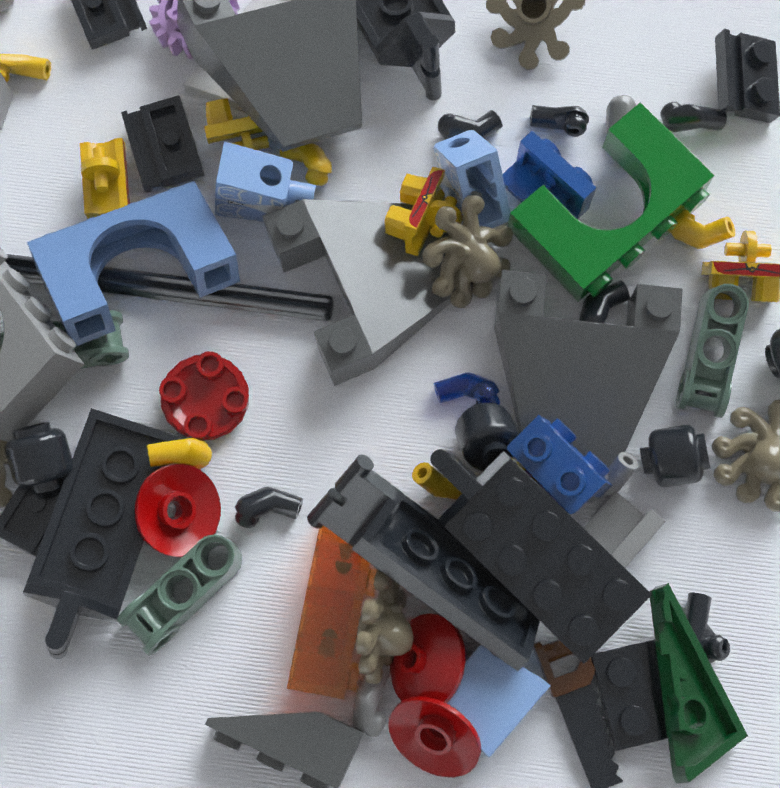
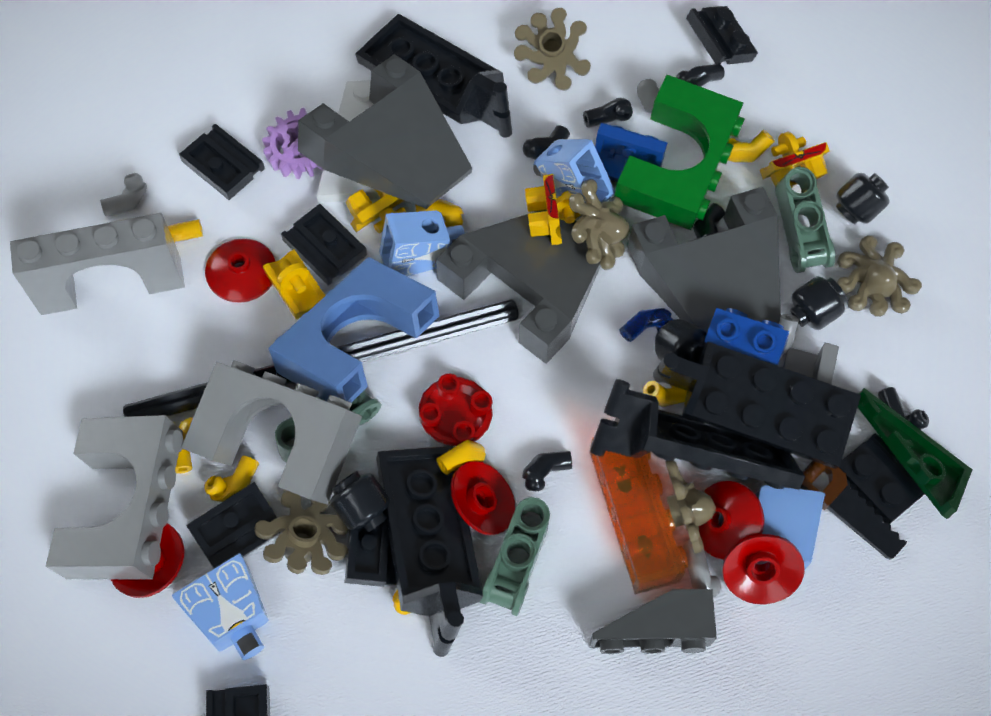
camera: 30 degrees left, 10 degrees down
(61, 151) = (242, 282): none -> red dish

